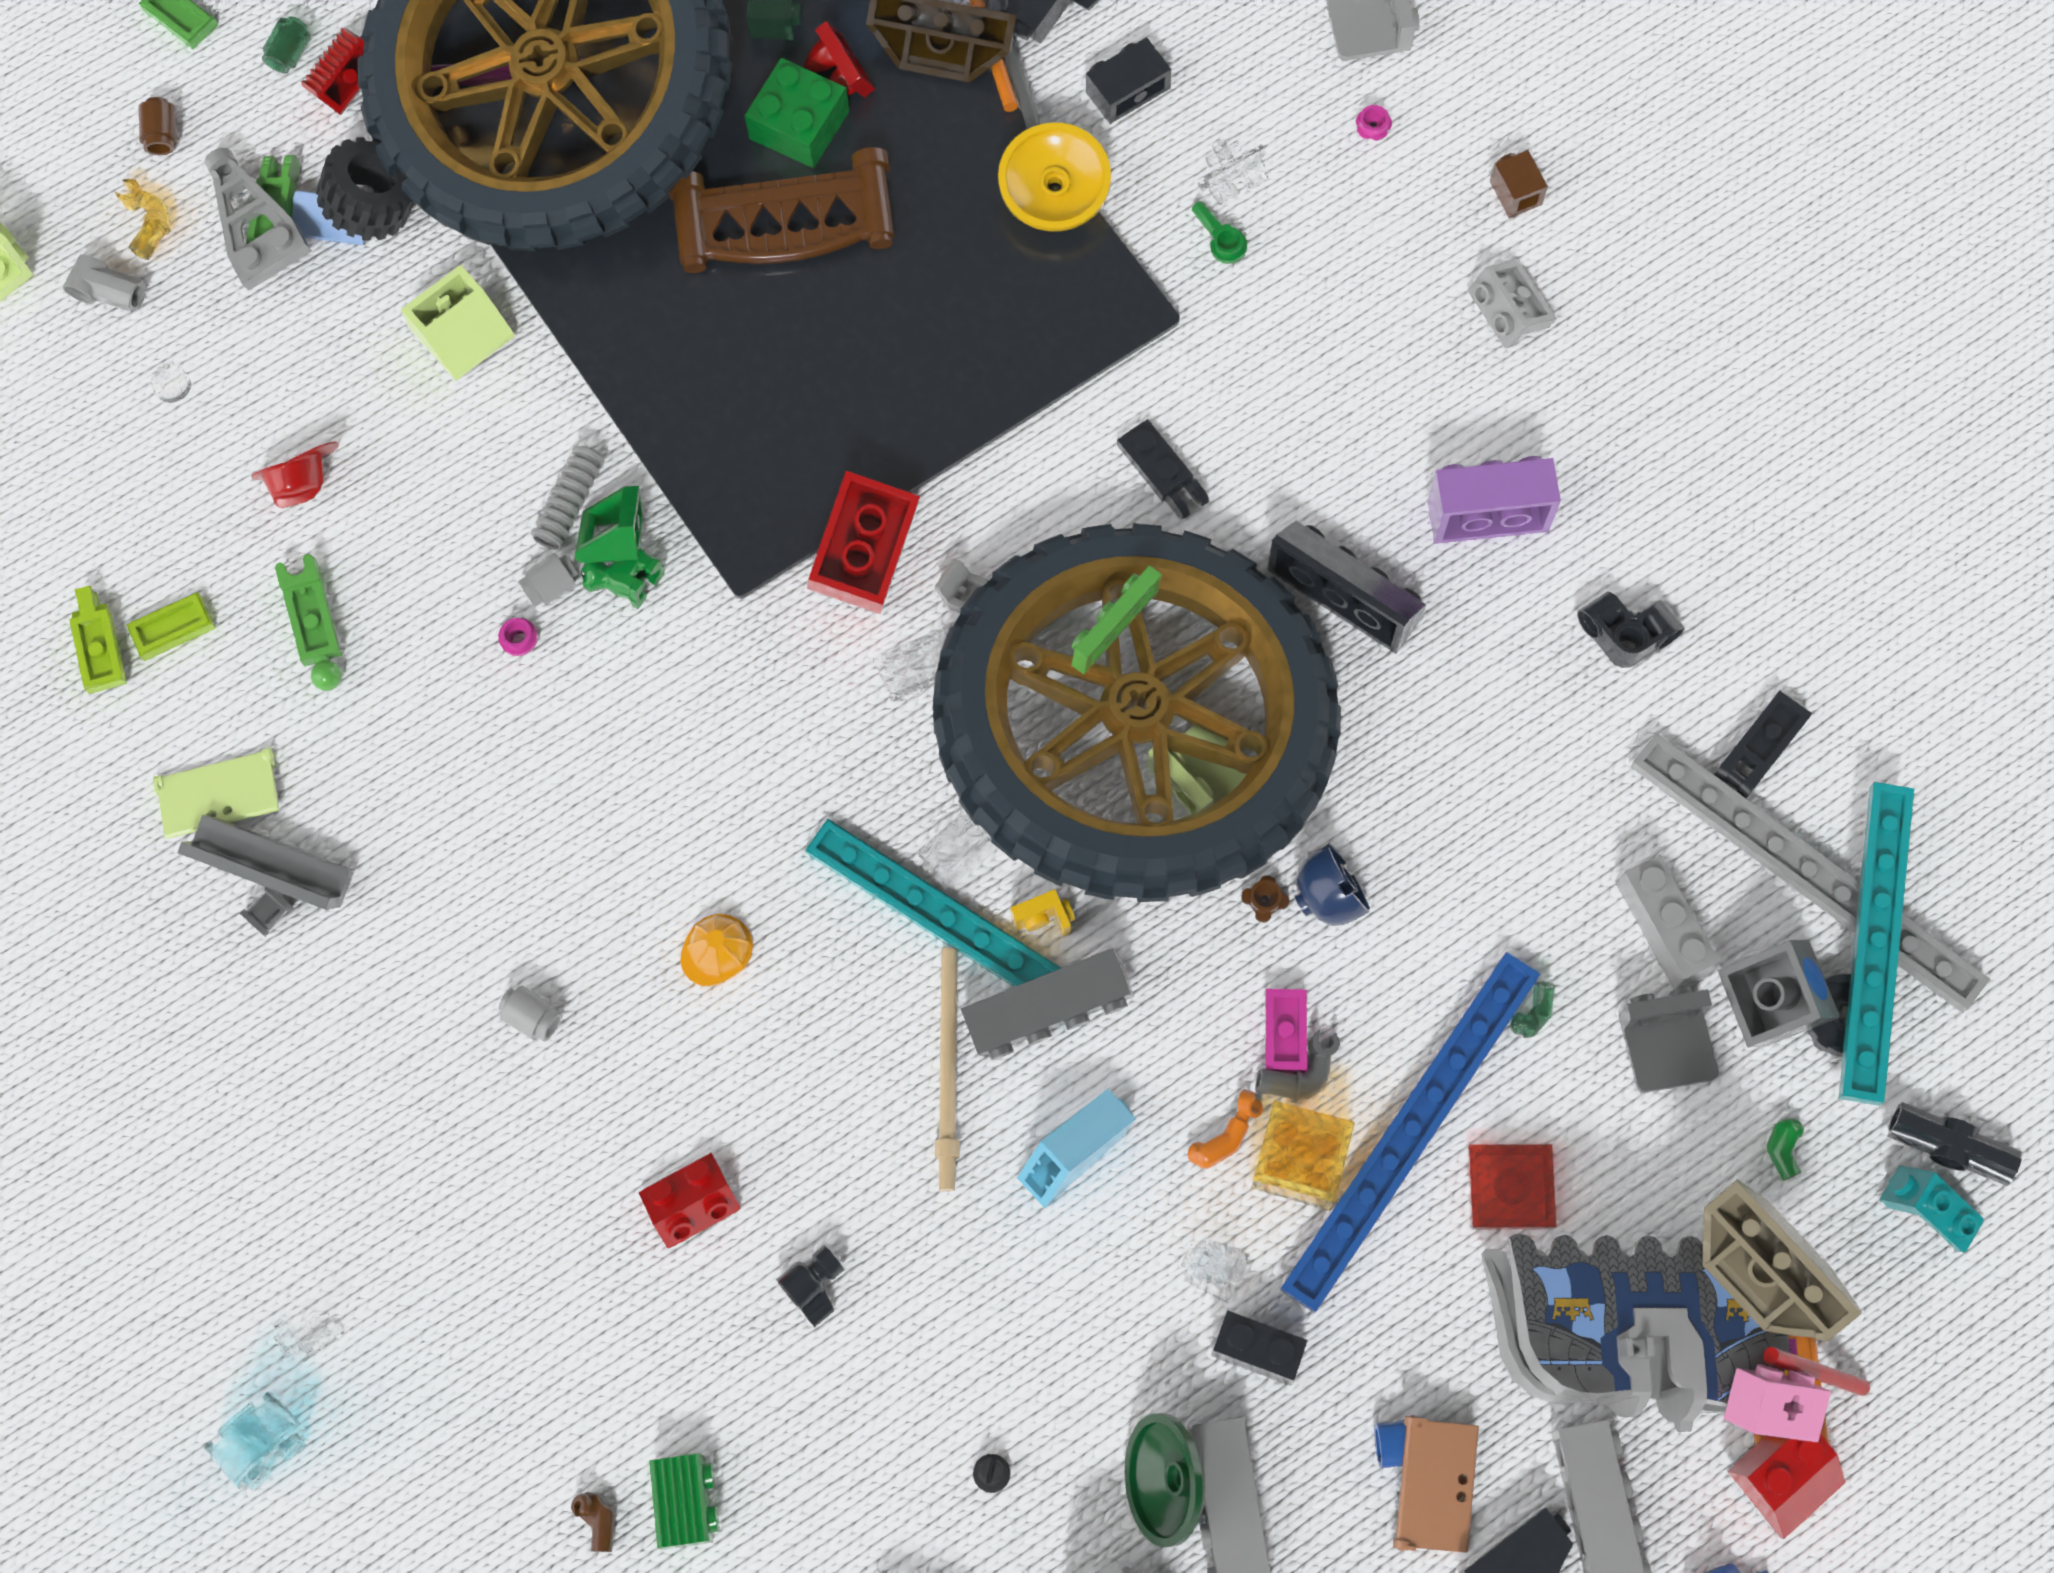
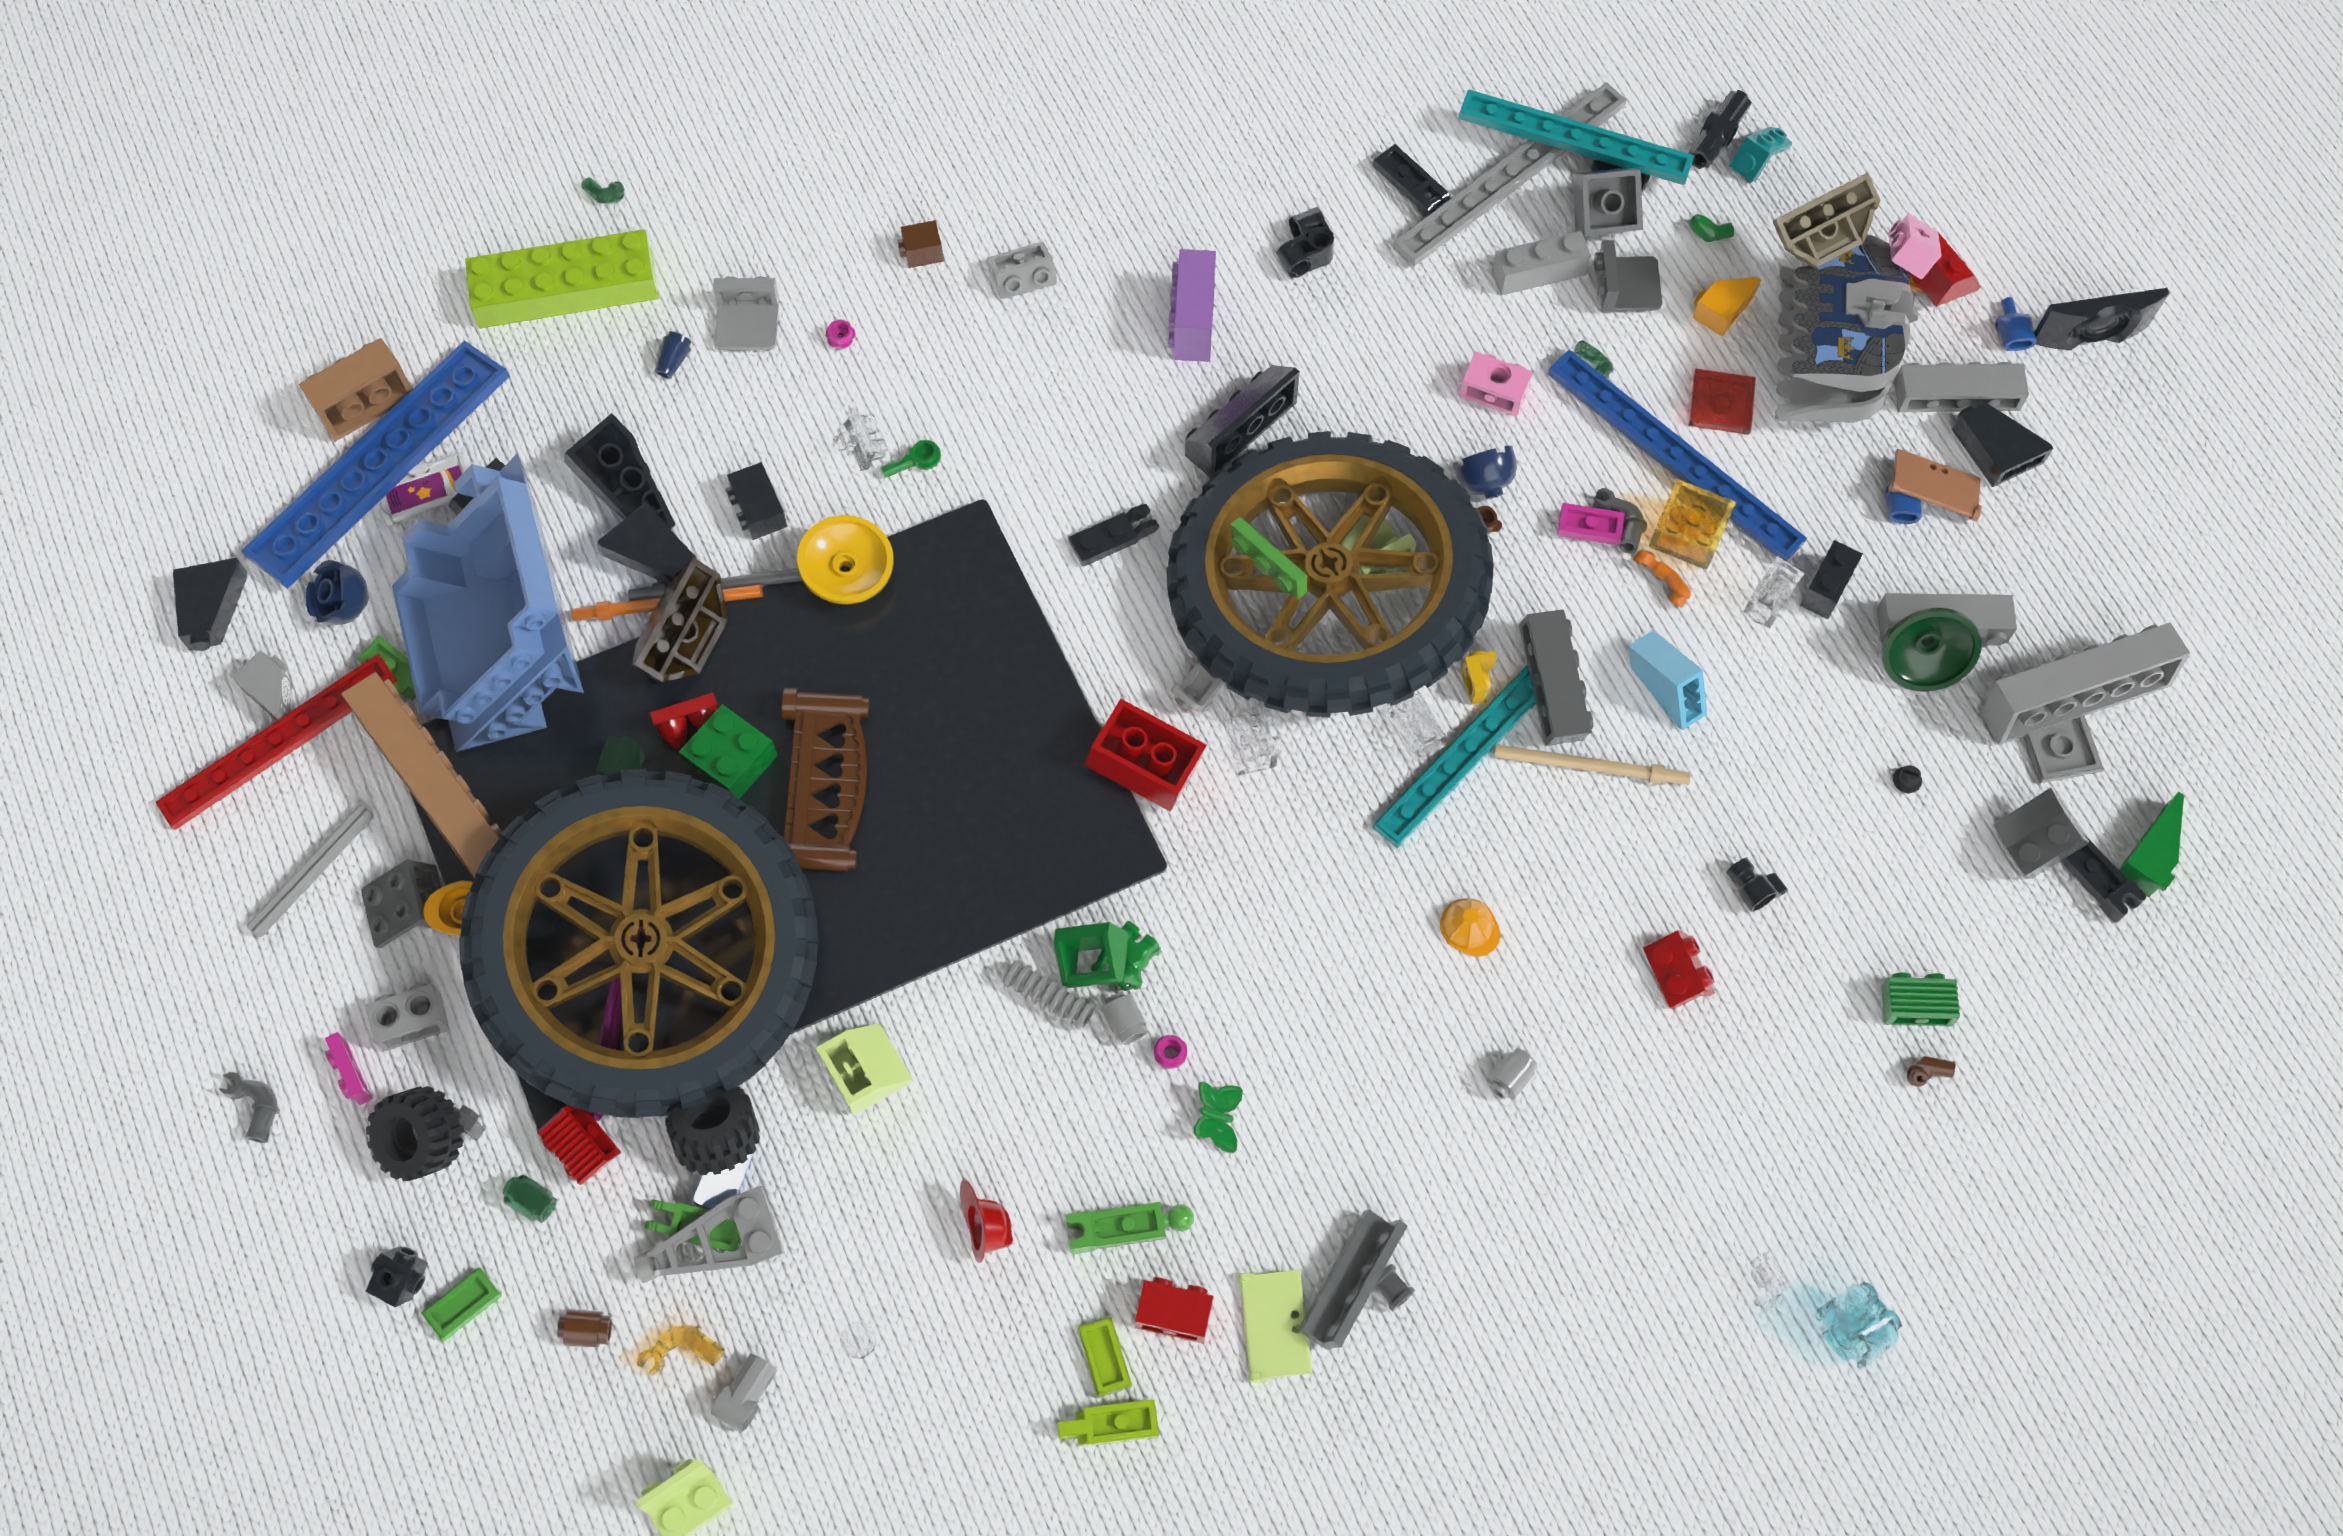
camera: 85 degrees left, 5 degrees down
(220, 684) = (1174, 1310): none -> red brick
(448, 692) = (1213, 1121): none -> green piece
(1456, 907) = (1500, 396): none -> bright pink brick
(1664, 1175) = (1724, 302): none -> light orange slope
(1821, 1372) = (1883, 229): bar -> none

